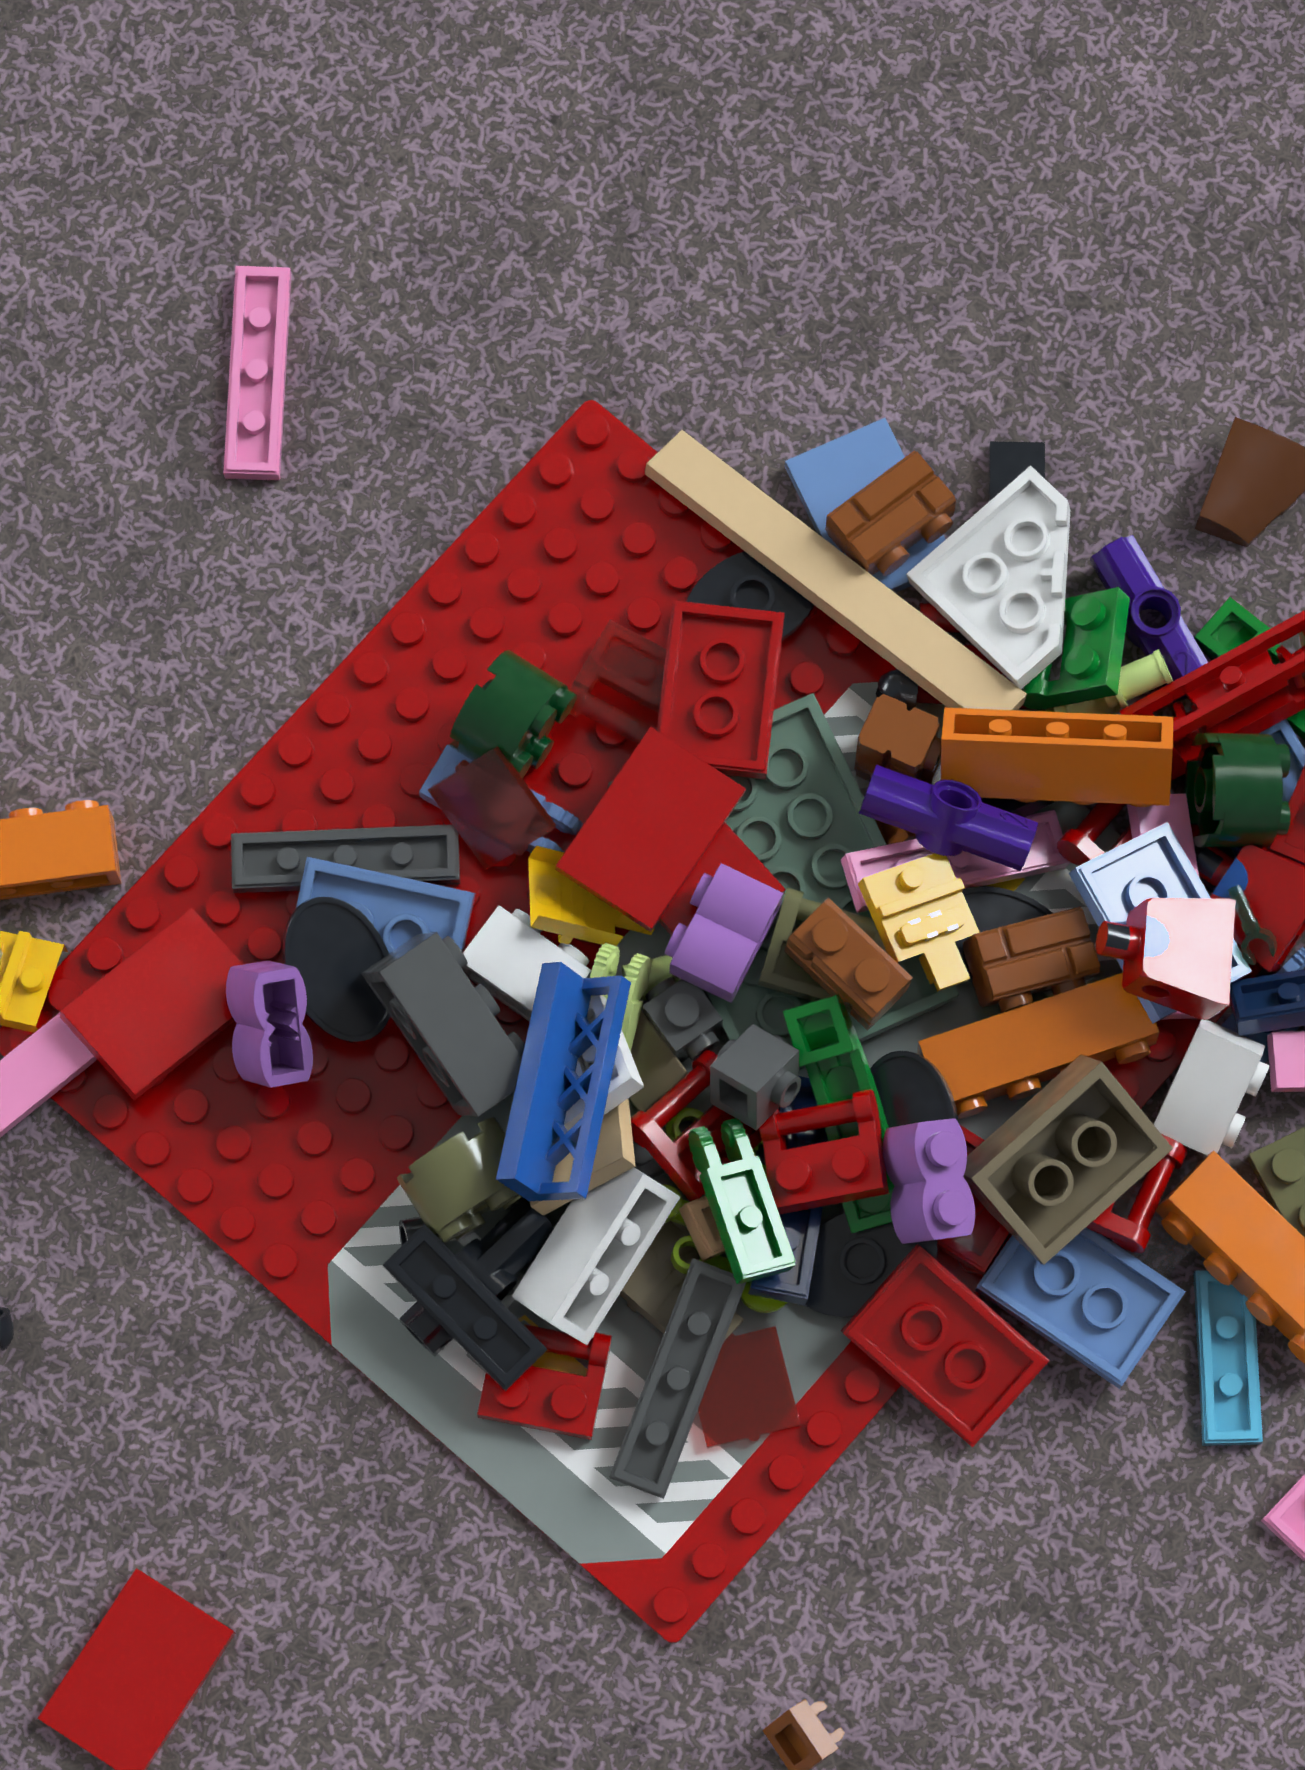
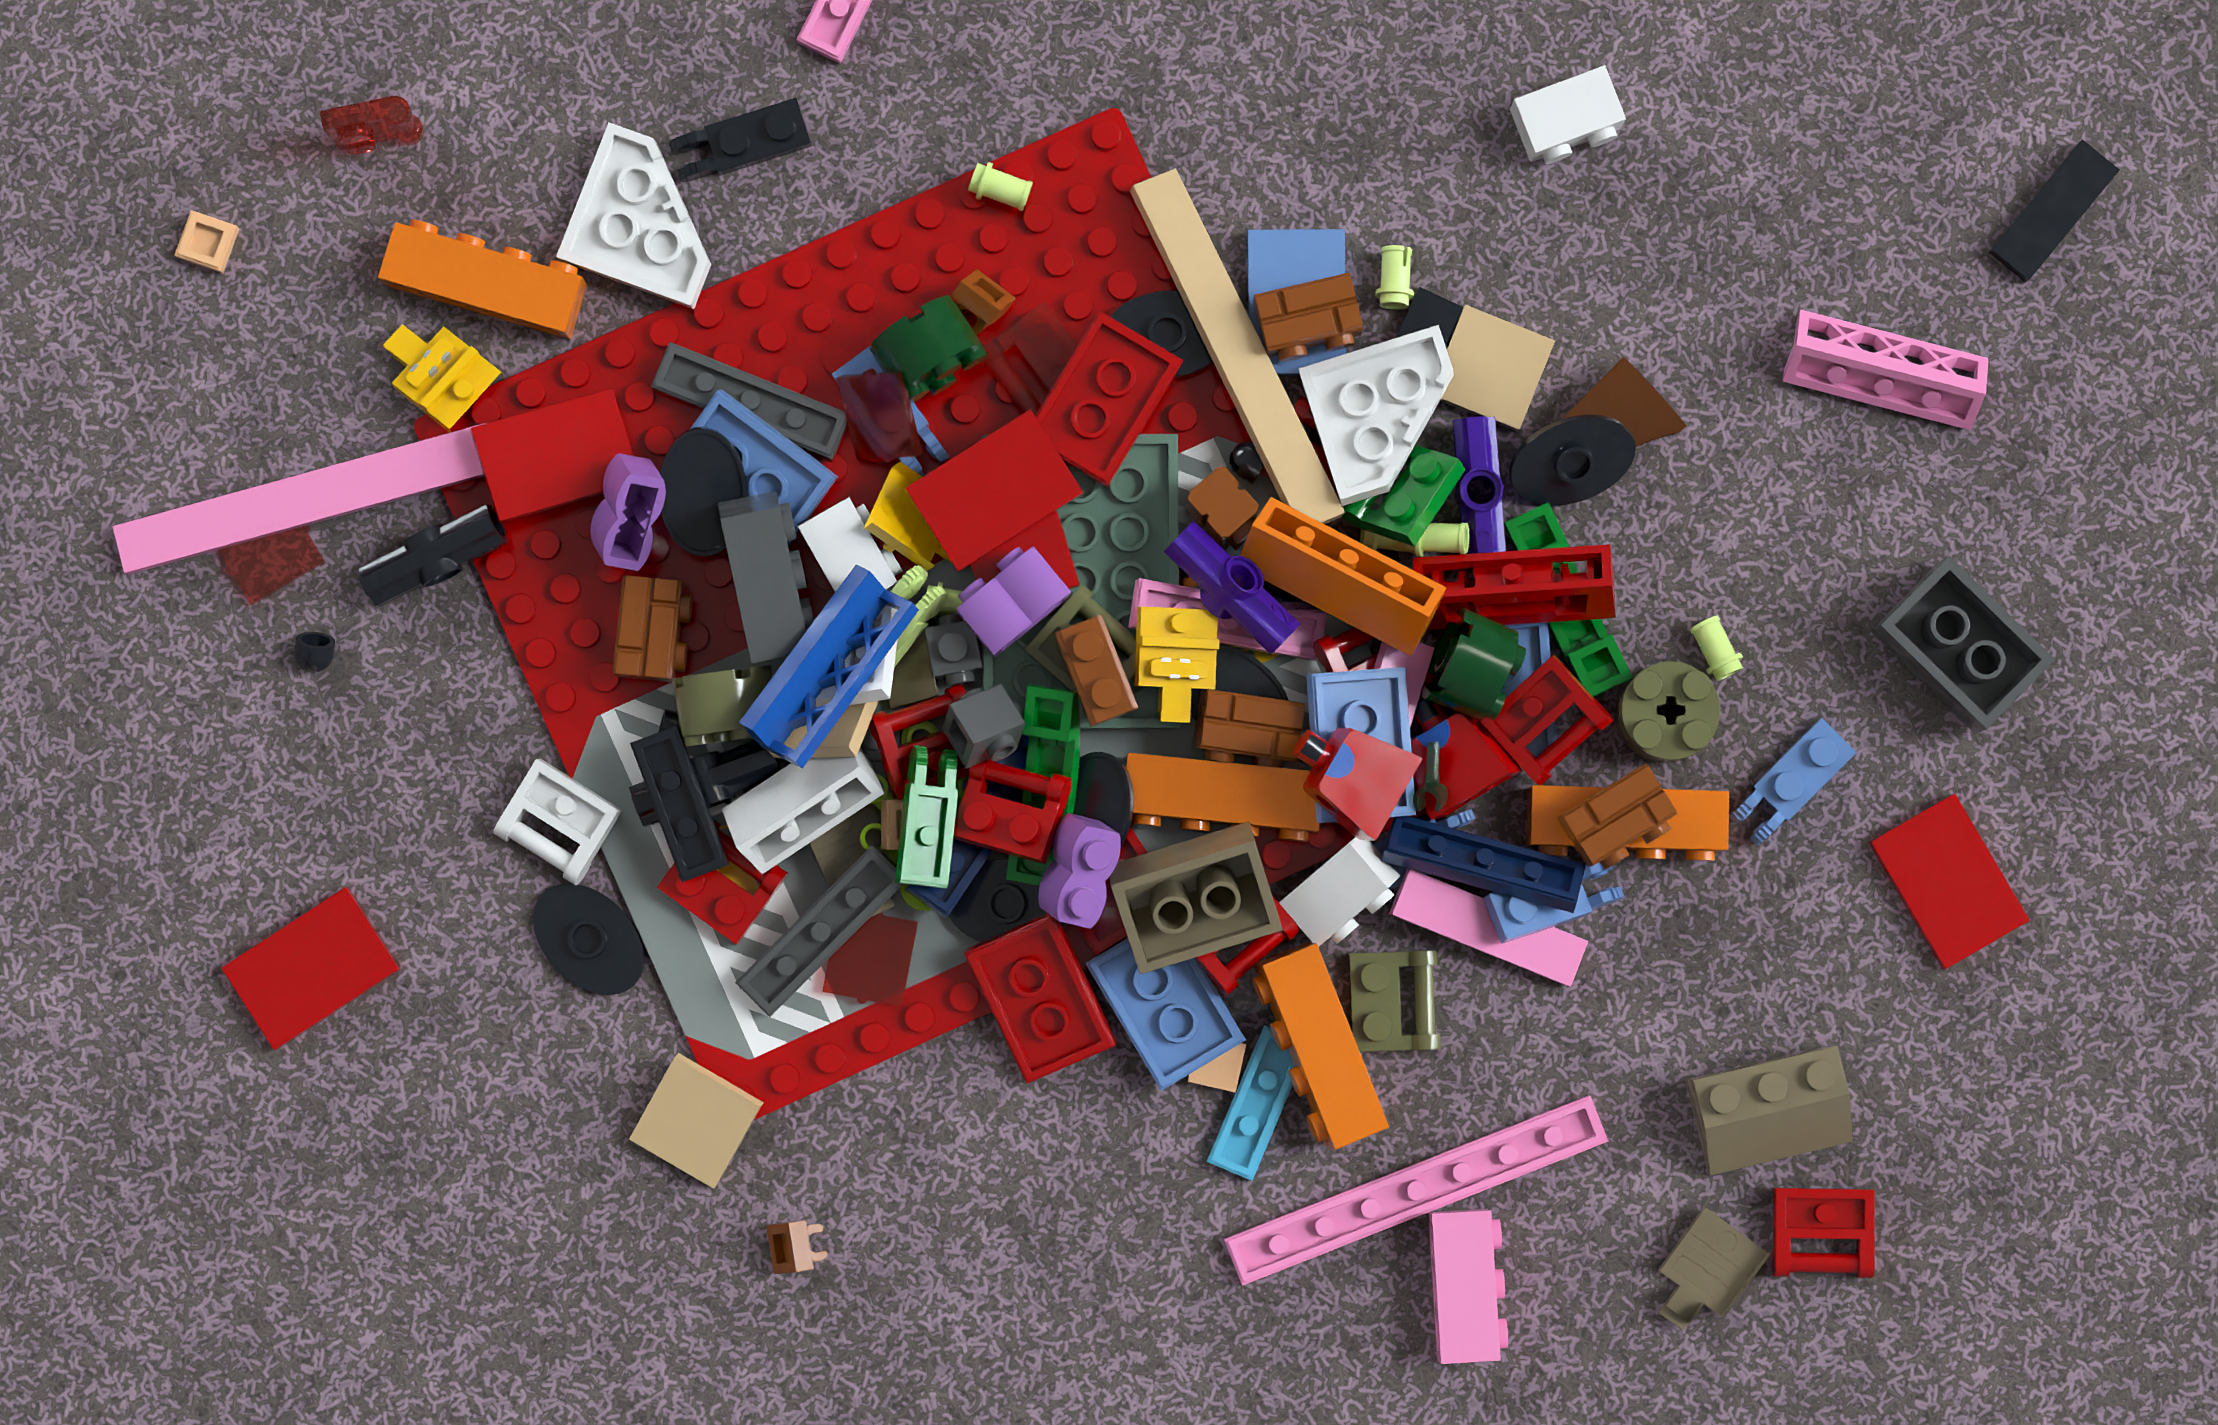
camera: 20 degrees right, 10 degrees up
(76, 1168) = (432, 555): none -> black piece
(138, 730) = (635, 222): none -> white plate
(215, 598) = (744, 140): none -> black hinge
(338, 1373) = (565, 807): none -> white plate
(347, 1139) = (651, 628): none -> dark orange brick
(427, 1507) = (589, 939): none -> black piece
(507, 525) = (1000, 186): none -> yellowish green pin
(544, 644) = (982, 298): none -> dark orange tile
(634, 1648) = (696, 1120): none -> tan tile
(965, 454) = (1395, 277): none -> yellowish green pin
(1059, 206) = (1568, 115): none -> white brick
(1108, 488) = (1495, 367): none -> tan tile
(1174, 1341) = (1222, 1071): none -> light nougat tile
(1232, 544) = (1572, 460): none -> black piece

